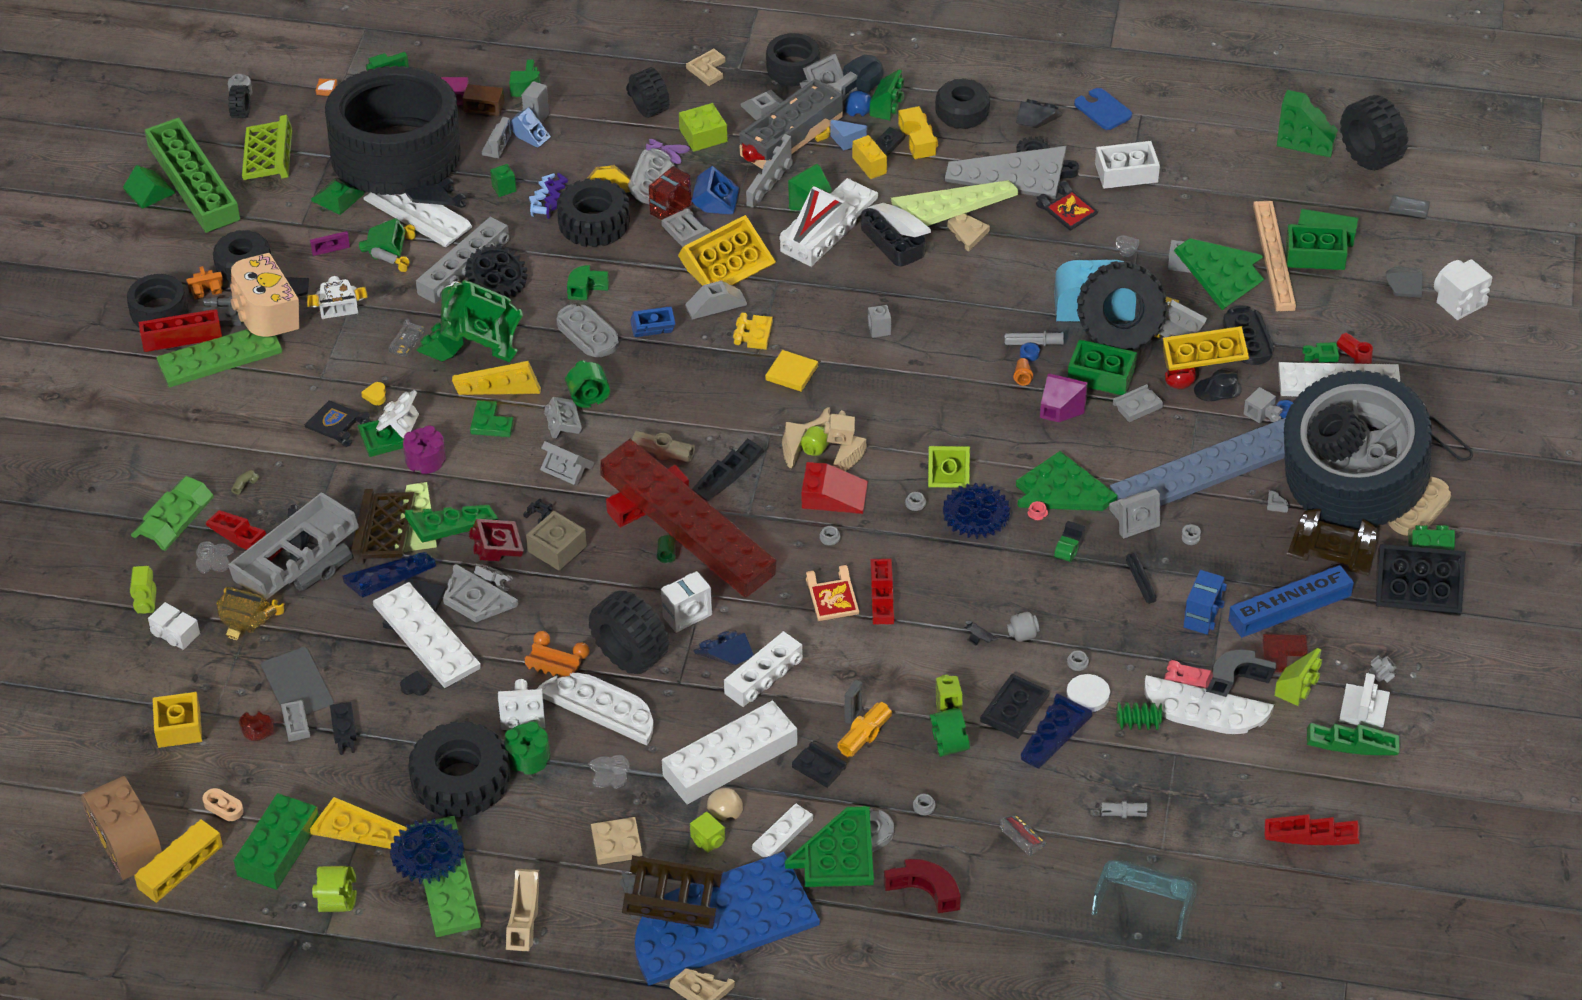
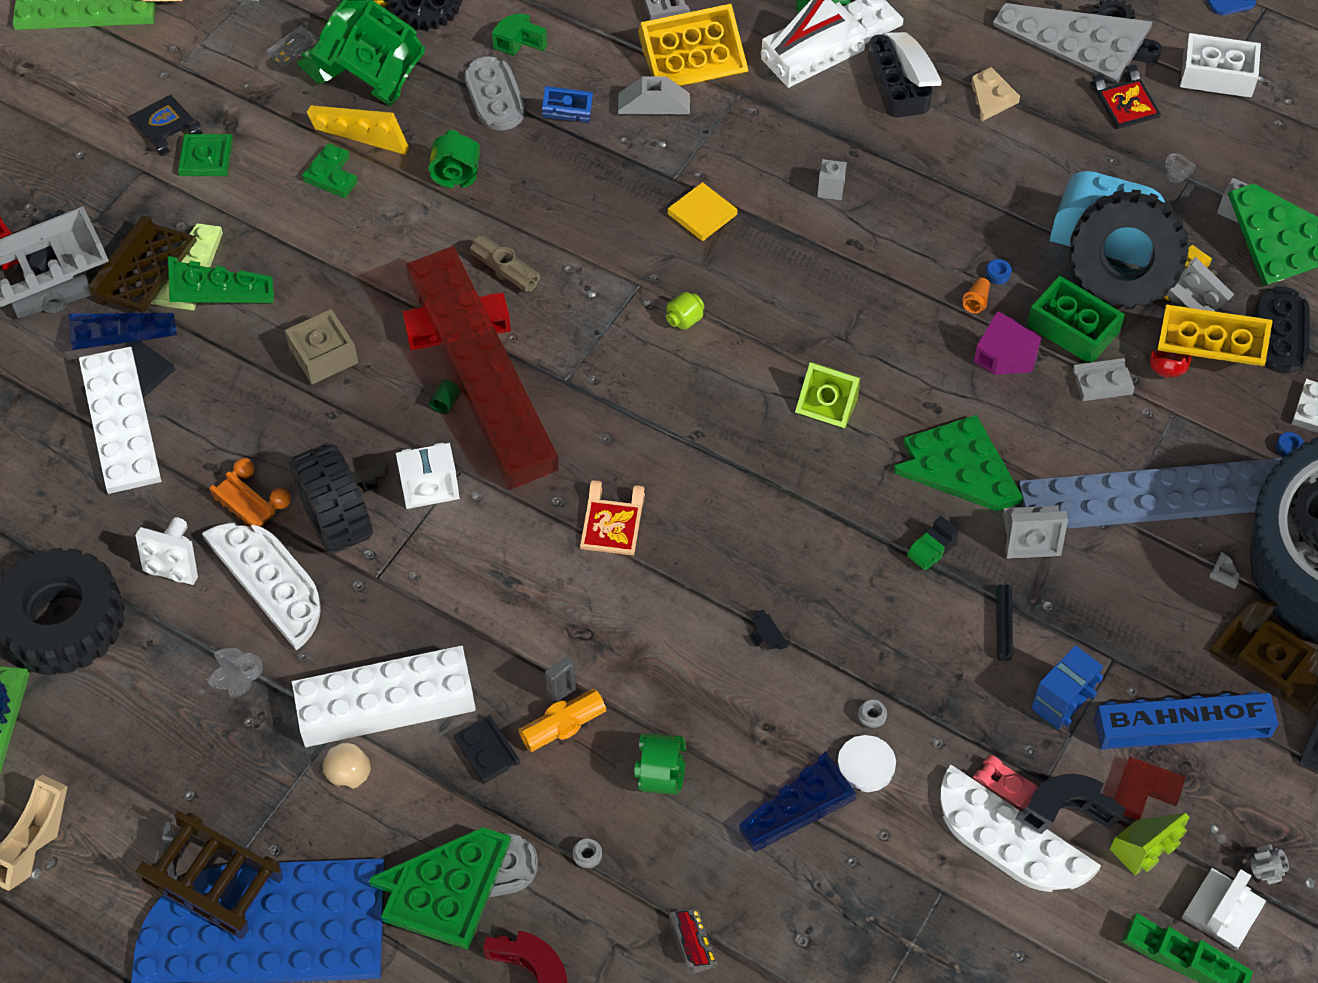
camera: 20 degrees right, 10 degrees up
(243, 479) = (26, 163): olive arm -> none
(375, 393) = (224, 101): yellow tile -> none
(399, 414) = (230, 137): white bracket -> none
(415, 684) = (75, 478): black tile -> none
(424, 450) = (236, 186): magenta brick -> none
(475, 596) = (199, 388): light grey wing -> none
(490, 574) = (230, 365): light grey plate -> none
(495, 539) = (257, 323): dark red plate -> none
(527, 748) = (151, 608): green brick -> none
(533, 507) = (324, 295): black piece -> none
(562, 416) = (411, 191): light grey bracket -> none
(564, 463) = (382, 249): light grey bracket -> none
(616, 840) = (195, 769): tan plate -> none
(707, 832) = (303, 799): lime brick -> none
(727, 648) = (446, 553): dark blue slope -> none
(729, 470) = (562, 319): black slope -> none
(759, 331) = (688, 149): yellow plate -> none
(763, 669) = (486, 582): white brick -> none
(782, 831) = (398, 828): white plate -> none
(829, 535) = (645, 434): light grey plate -> none
(832, 489) = (676, 380): red slope -> none
(840, 429) = (714, 306): tan brick -> none
(847, 455) = (720, 336): tan piece -> none
(882, 591) = (672, 536): red slope -> none
(915, 501) = (769, 421): light grey plate -> none
(945, 204) = (981, 54): yellowish green wing -> none
(948, 691) = (683, 706): lime torso -> none
(976, 510) = (837, 463): clear blue gear -> none
(1014, 706) = (765, 750): black tile -> none
(1023, 626) = (823, 643): light grey head -> none
(1036, 338) = (1011, 256): light grey axle -> none
(1037, 511) = (916, 482): coral plate -> none
(1124, 809) = (838, 952): light grey pin -> none
(1139, 716) = (914, 822): green piece -> none
(1191, 529) = (1094, 573): light grey bush -> none
(1220, 386) = (1215, 388): black piece -> none
(1262, 405) = (1258, 432): light grey brick -> none

